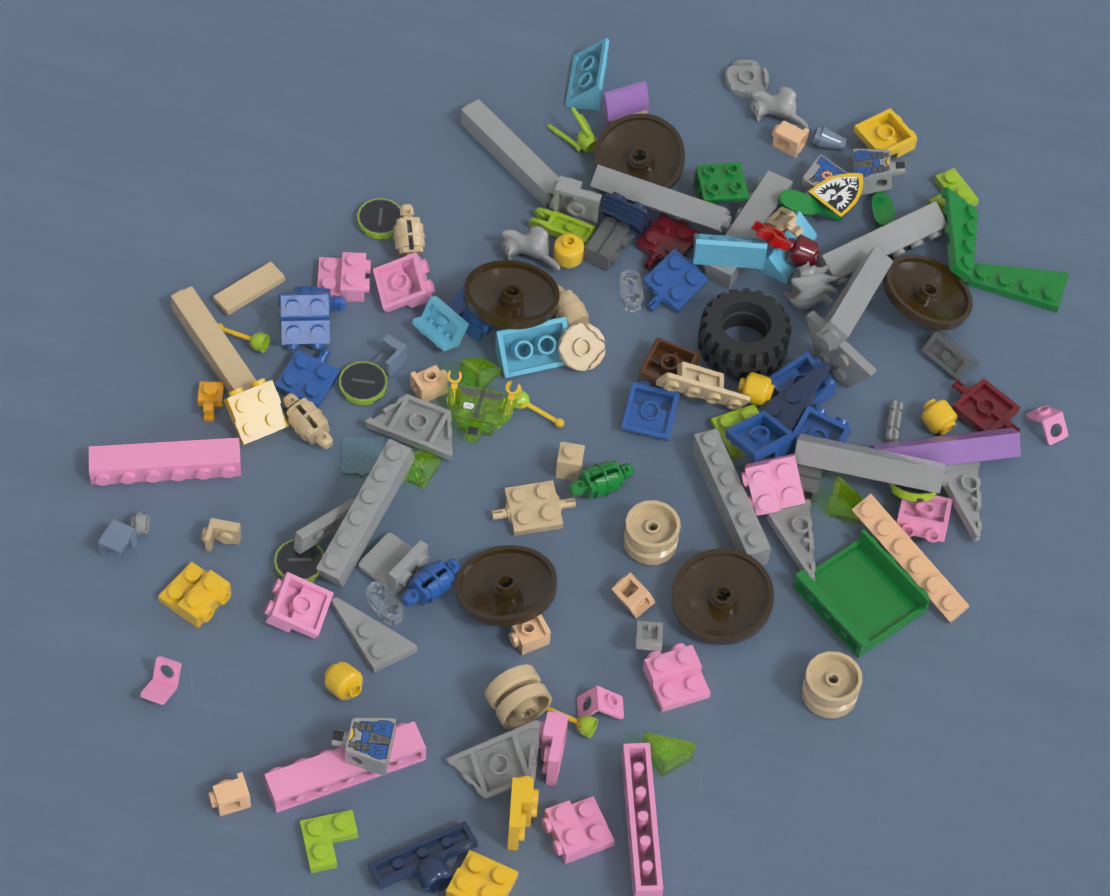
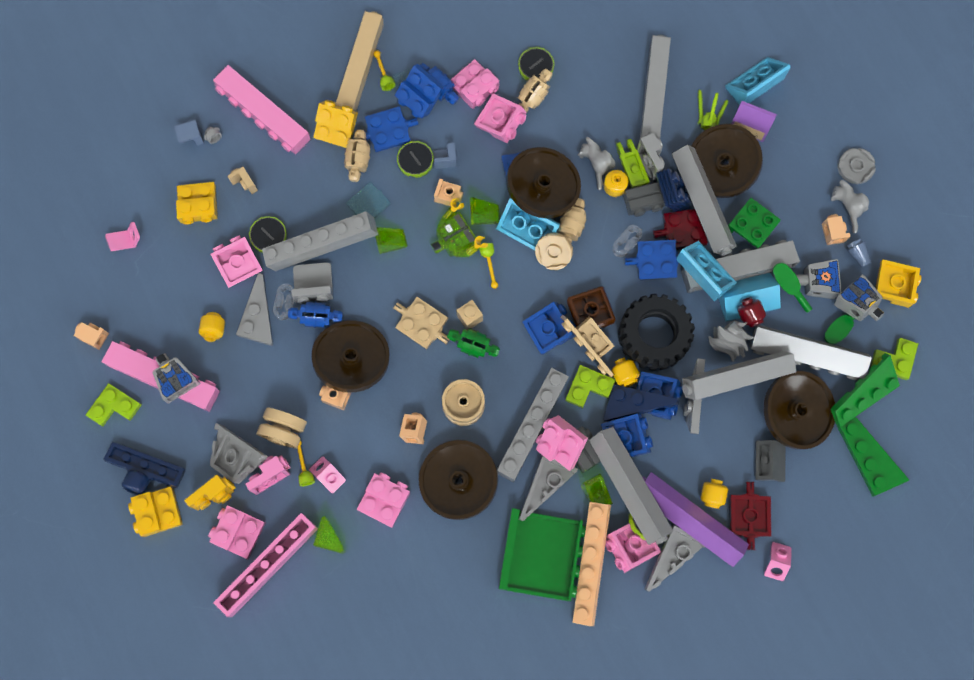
camera: 50 degrees right, 20 degrees up
(210, 396) = (327, 91): light orange plate -> none
(249, 288) = (418, 44): tan tile -> none
(321, 528) = (292, 227): light grey tile -> none
(417, 425) = (414, 212): light grey wing -> none
(441, 324) = (491, 163): medium azure bracket -> none
(649, 635) = (391, 462): light grey bracket -> none
(761, 437) = (588, 406): blue plate -> none
(774, 237) = (739, 288): red plate -> none
(783, 220) = (759, 282): tan plate -> none
(831, 684) = (451, 582): tan wheel -> none
(839, 192) = (819, 295): shield -> none
(893, 421) = (685, 469): light grey axle -> none

